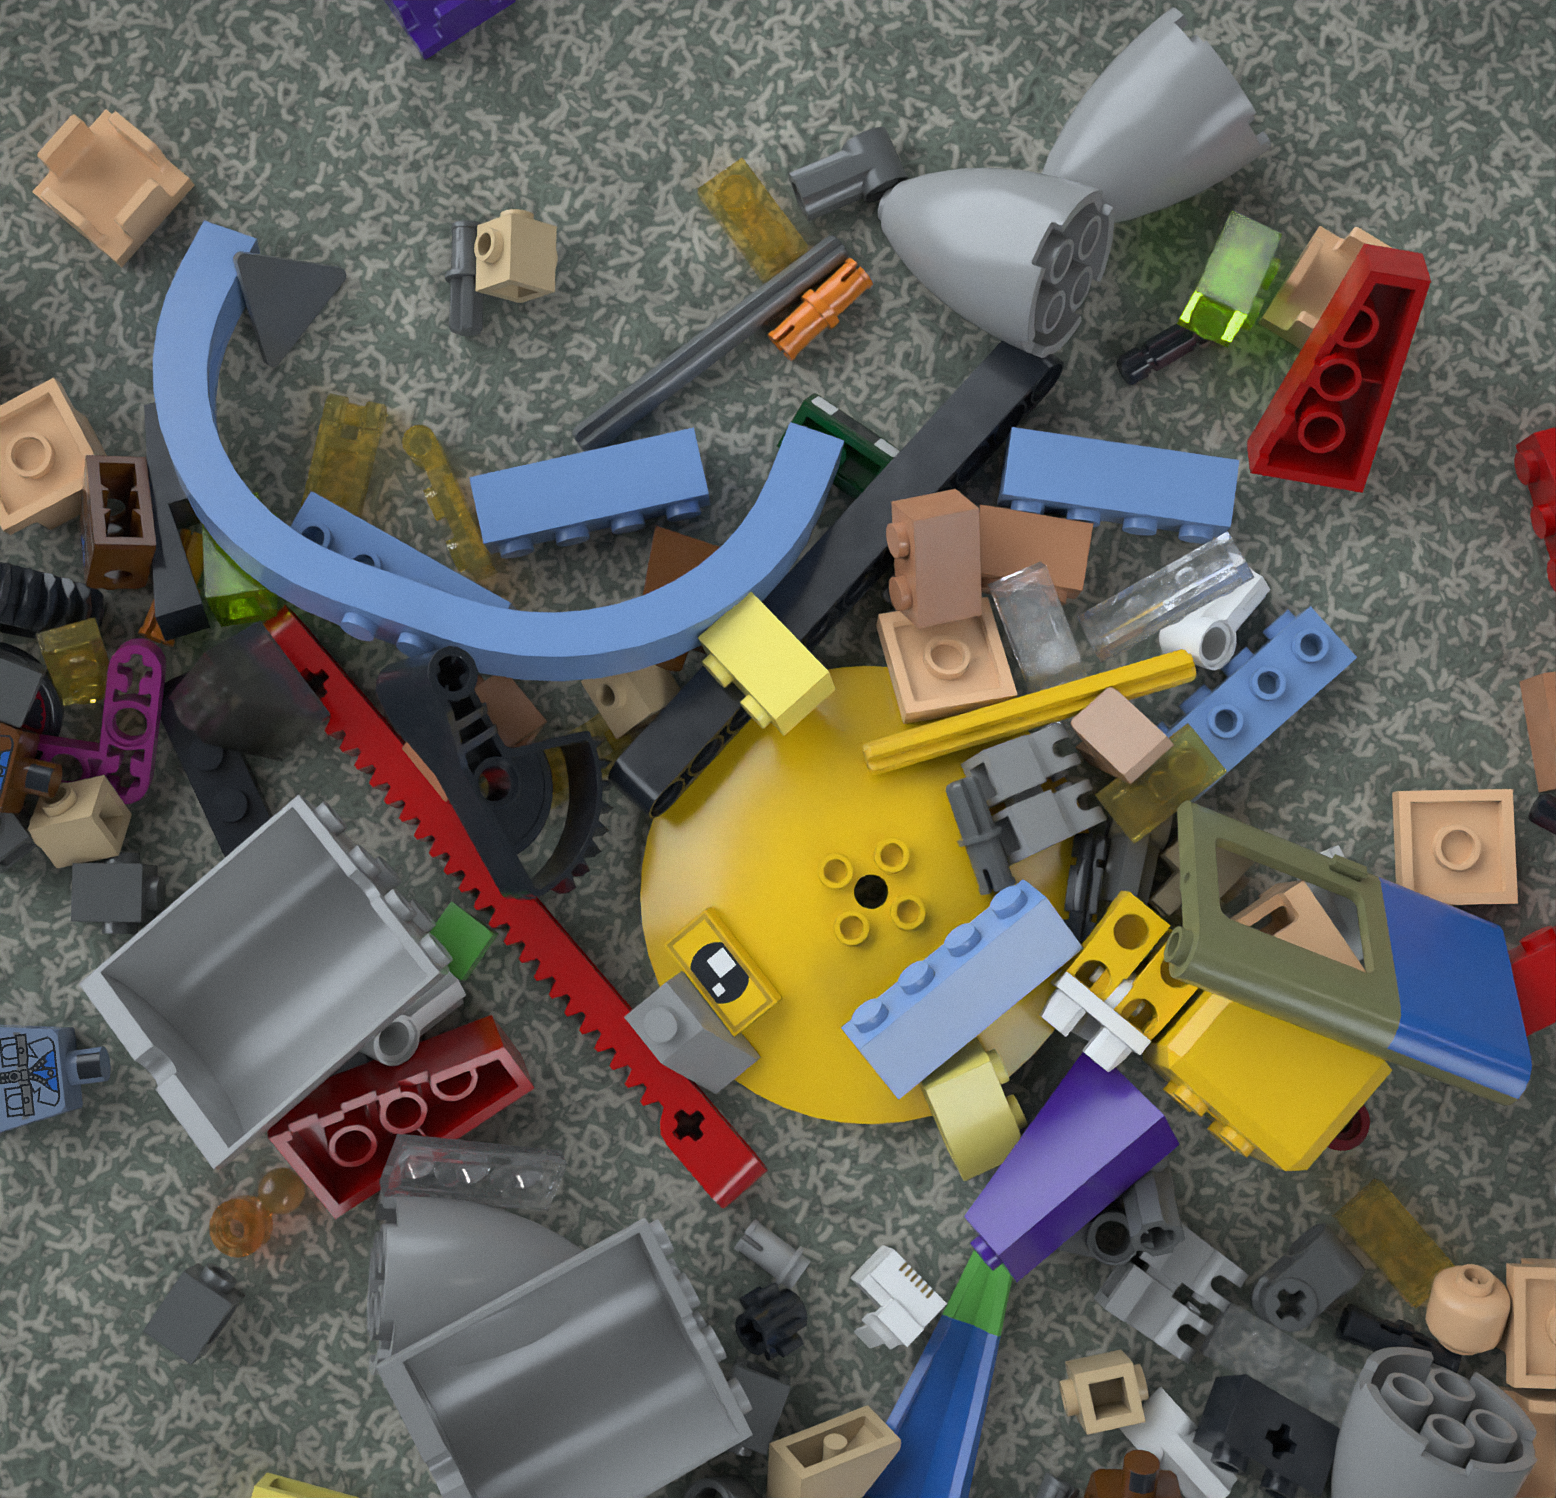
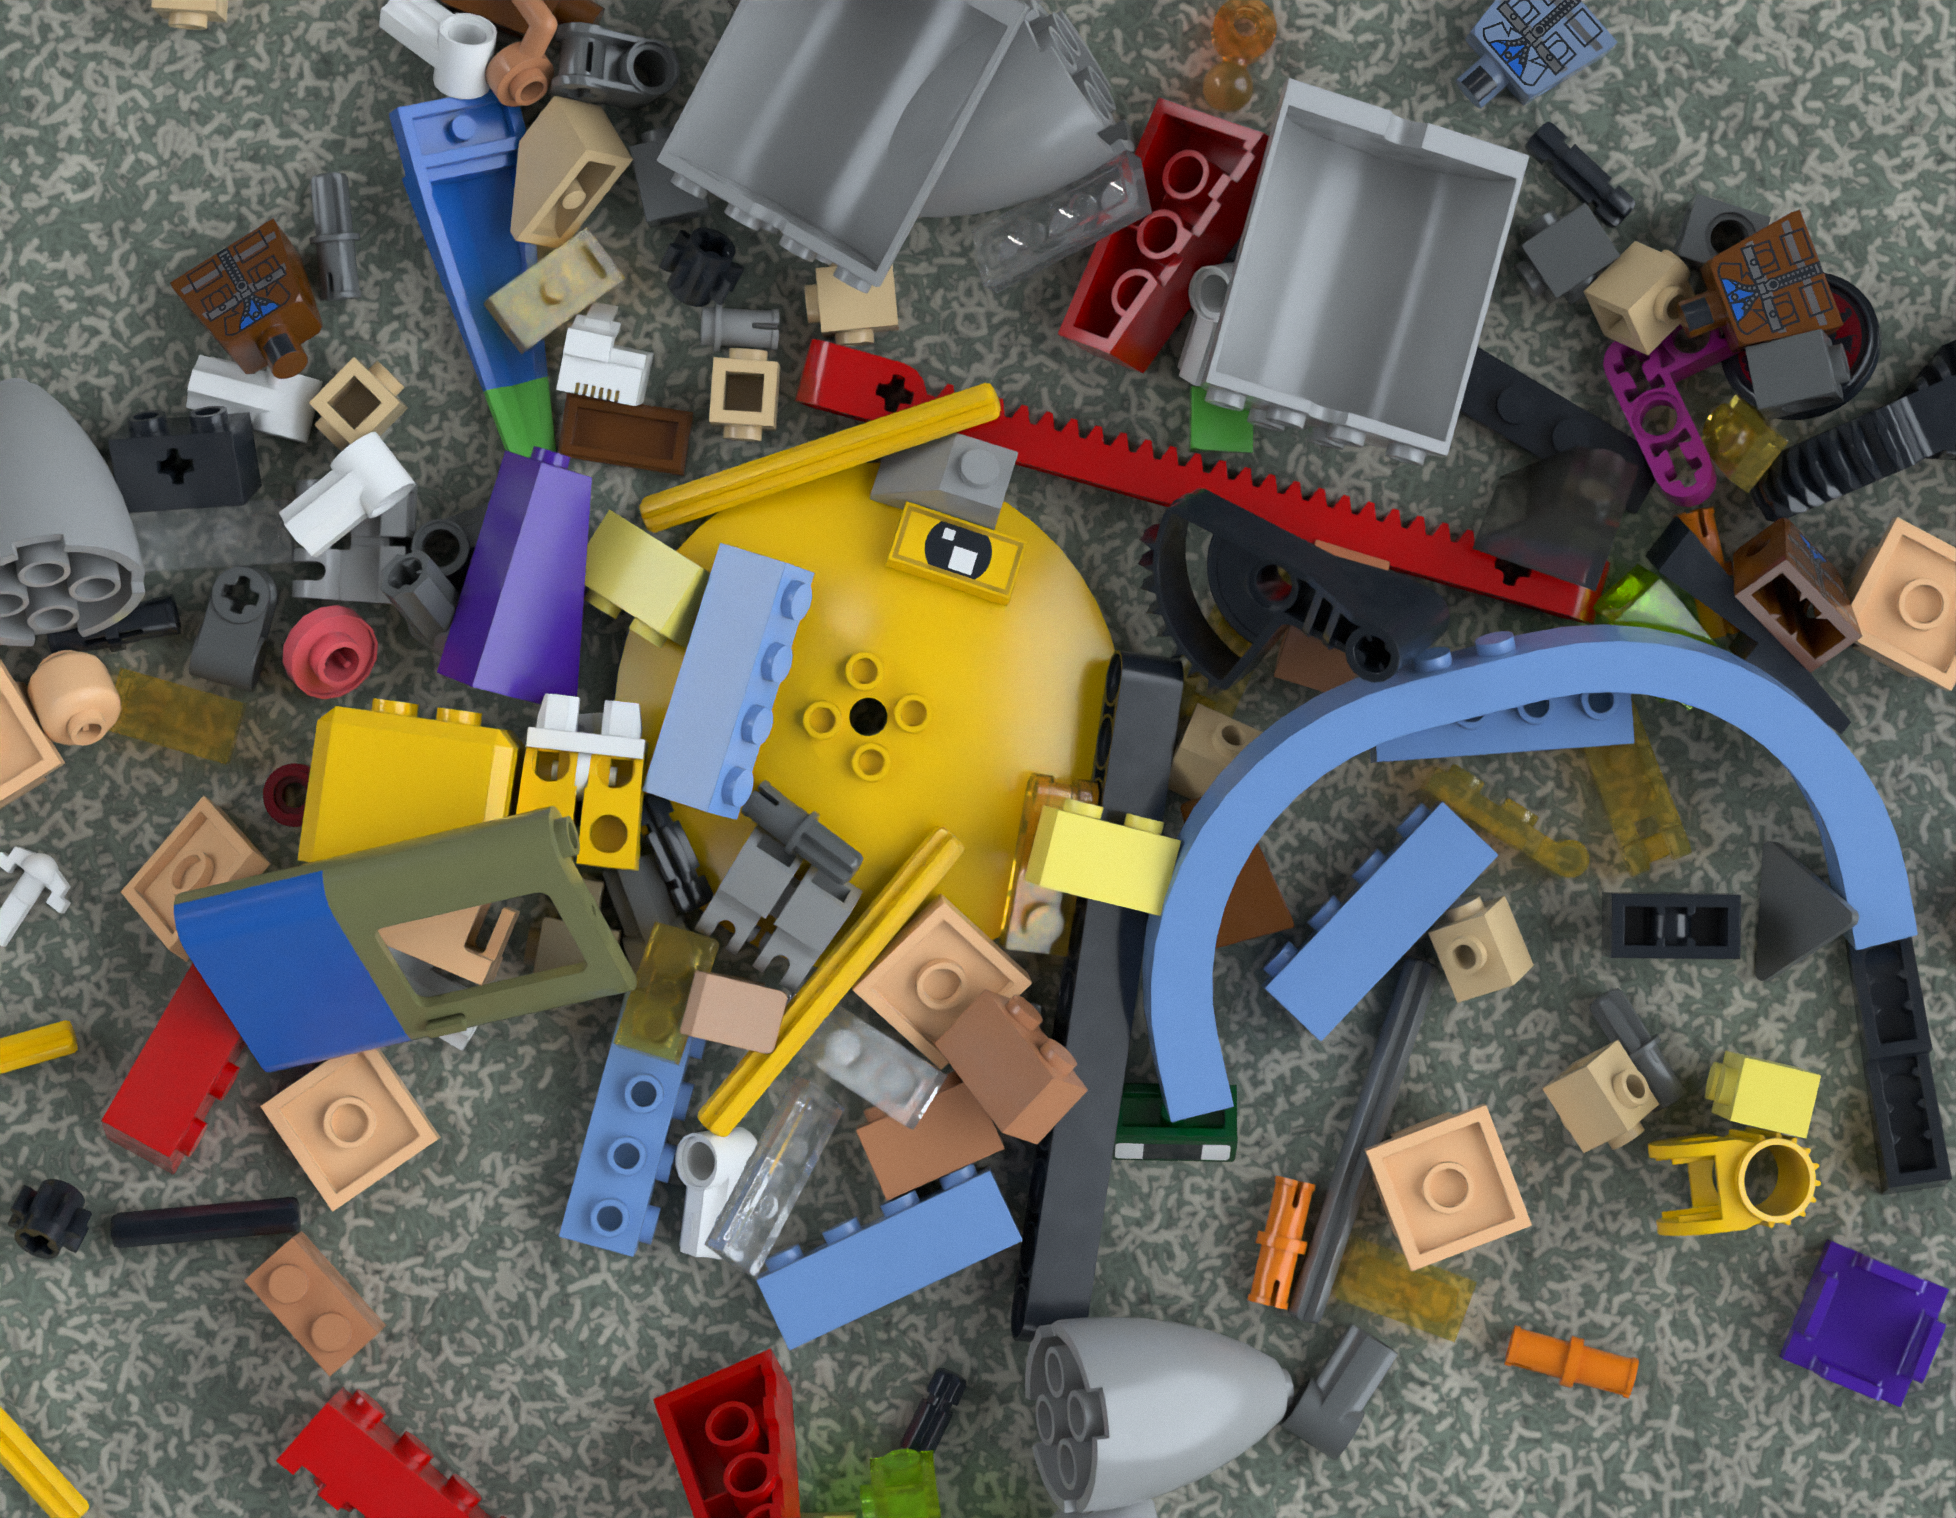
camera: 150 degrees right, 5 degrees up
(64, 945) = (1580, 175): none -> black axle
(291, 141) = (1898, 1067): none -> black slope
(379, 346) = (1671, 925): none -> black brick
(394, 178) = (1763, 1093): none -> light yellow piece
(439, 94) = (1730, 1206): none -> yellow piece
(530, 421) = (1480, 947): none -> tan brick
(667, 88) = (1571, 1361): none -> orange pin
(672, 266) = (1446, 1186): none -> light nougat panel
(680, 1210) = (849, 312): none -> tan brick
(775, 1113) = (820, 457): none -> yellow axle
(803, 1201) = (744, 394): none -> tan brick
(849, 661) = (1037, 916): none -> clear yellow plate
(896, 1379) = (554, 290): none -> clear yellow plate
(912, 1229) = (626, 434): none -> reddish brown tile
(1147, 1329) = (361, 485): none -> white piece
(1247, 1213) = (330, 652): none -> coral plate
(1449, 1121) = (197, 854): none -> light nougat plate

